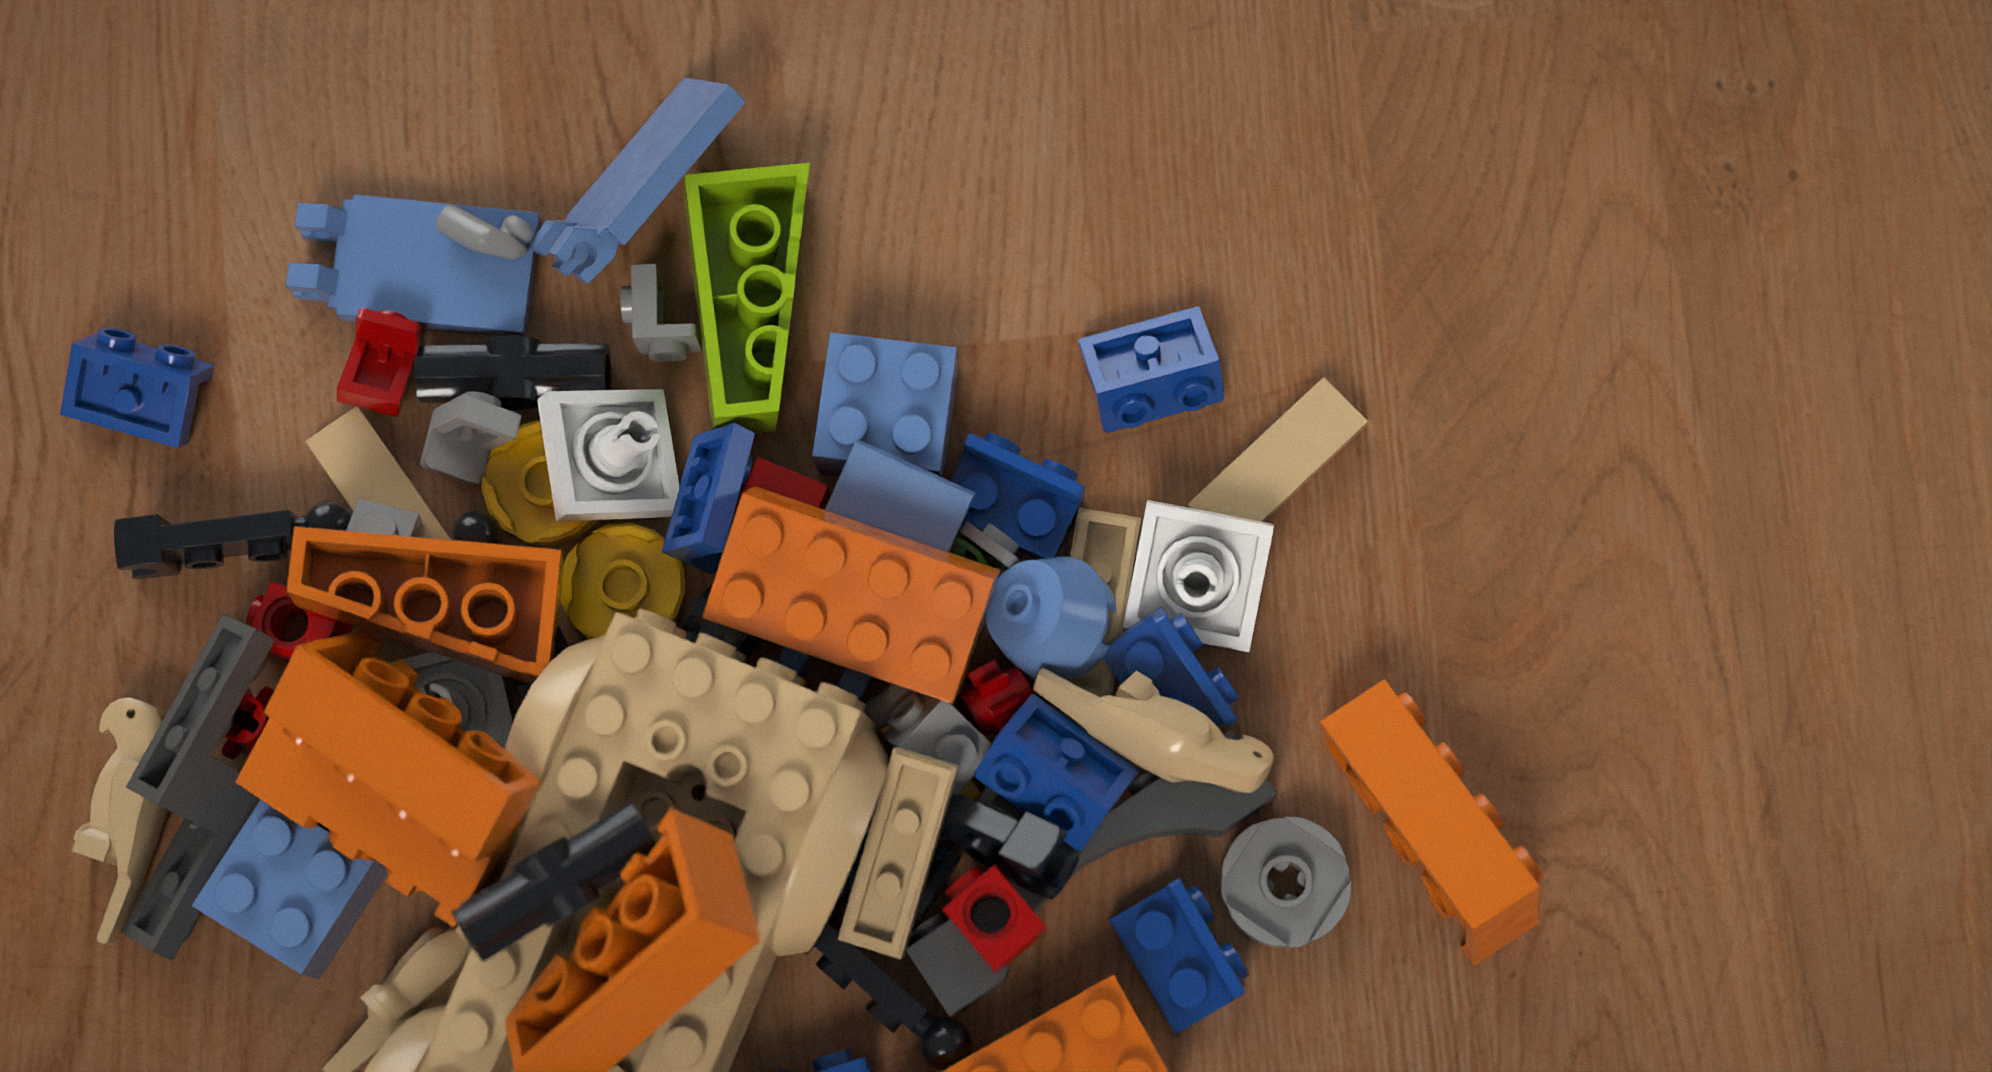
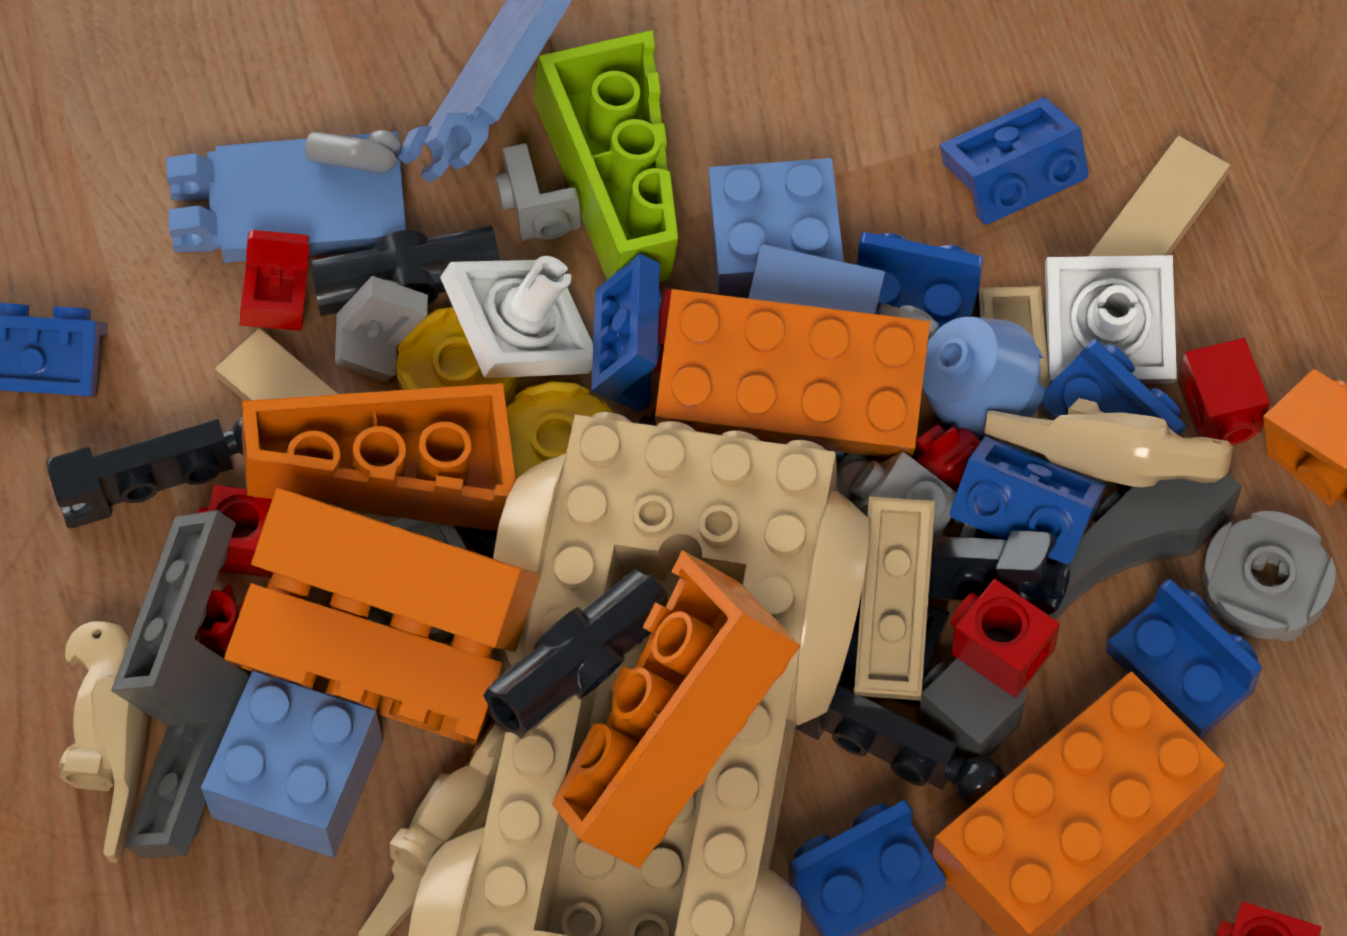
camera: 15 degrees left, 15 degrees down
(1292, 679) = (1224, 391): none -> red brick

